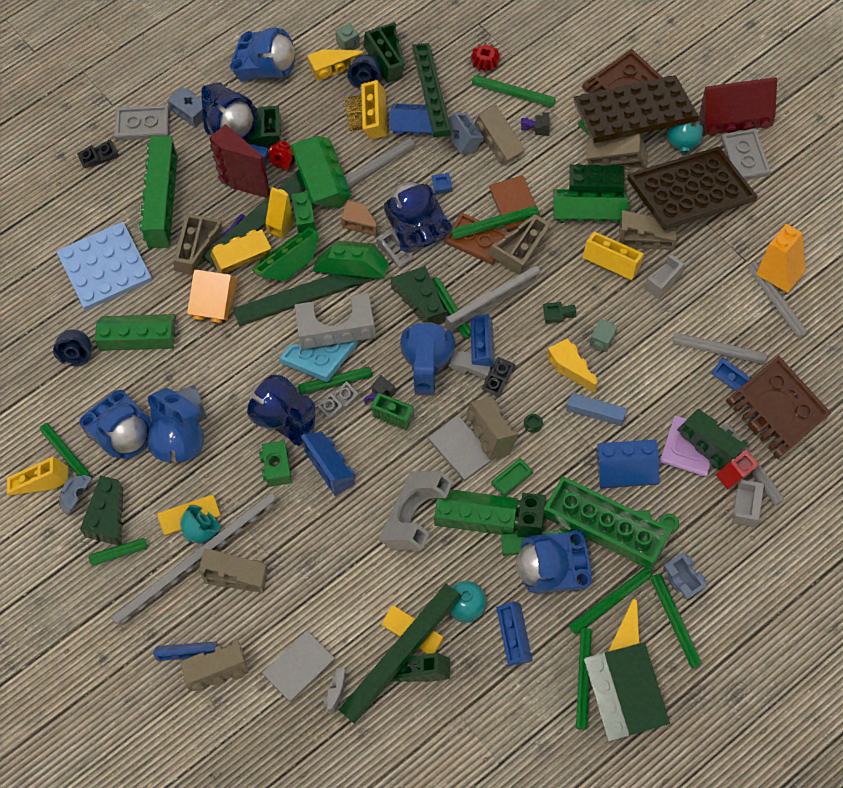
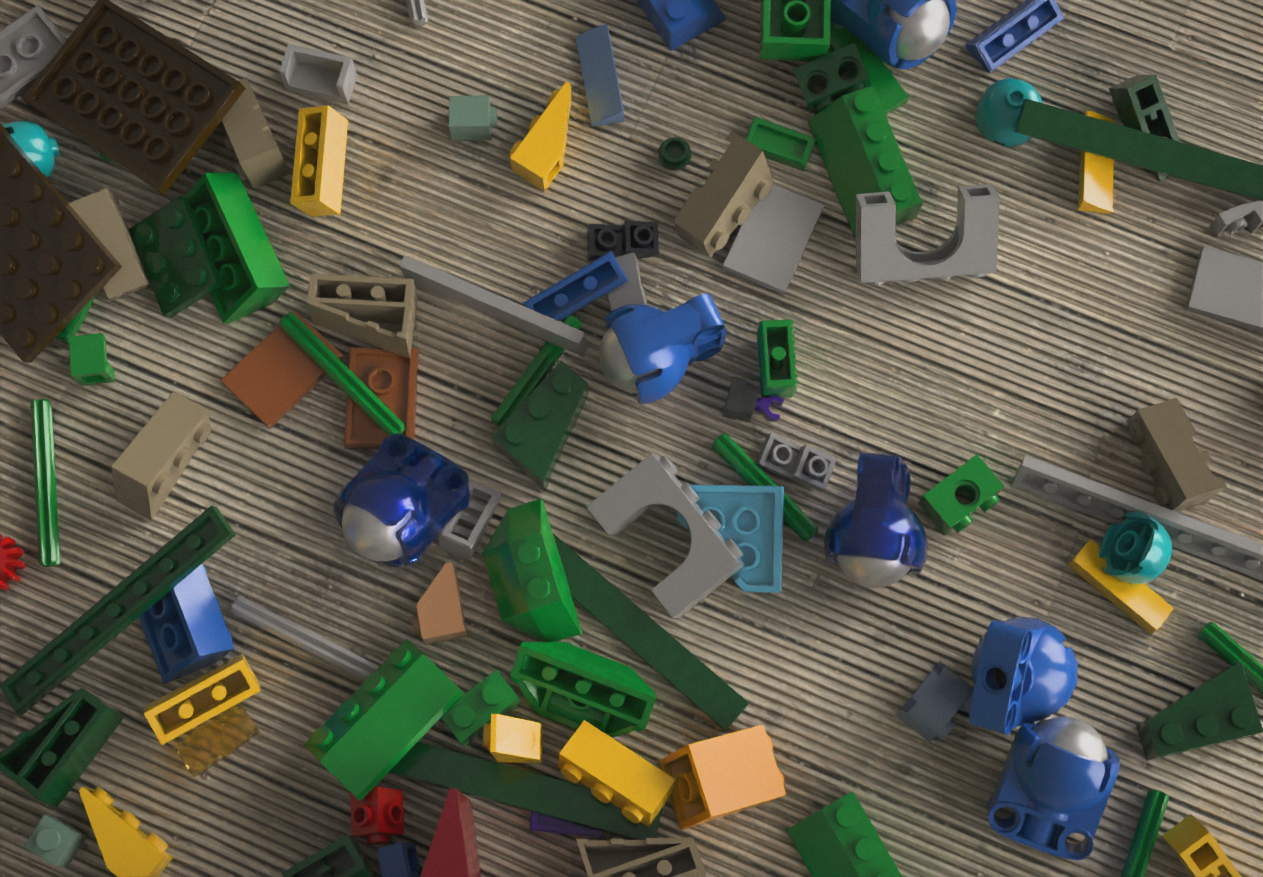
camera: 120 degrees left, 10 degrees up
(72, 487) = (1202, 795): sand blue cylinder -> none
(328, 462) = (917, 408): blue slope -> none
(364, 70) = (119, 762): dark blue cylinder -> none
(441, 183) = (301, 505): blue plate -> none
(464, 133) = (179, 506): sand blue brick -> none
(541, 124) = (101, 400): pearl dark grey piece -> none
(556, 312) = (463, 206): dark green plate -> none
(561, 123) = (89, 360): none -> green panel

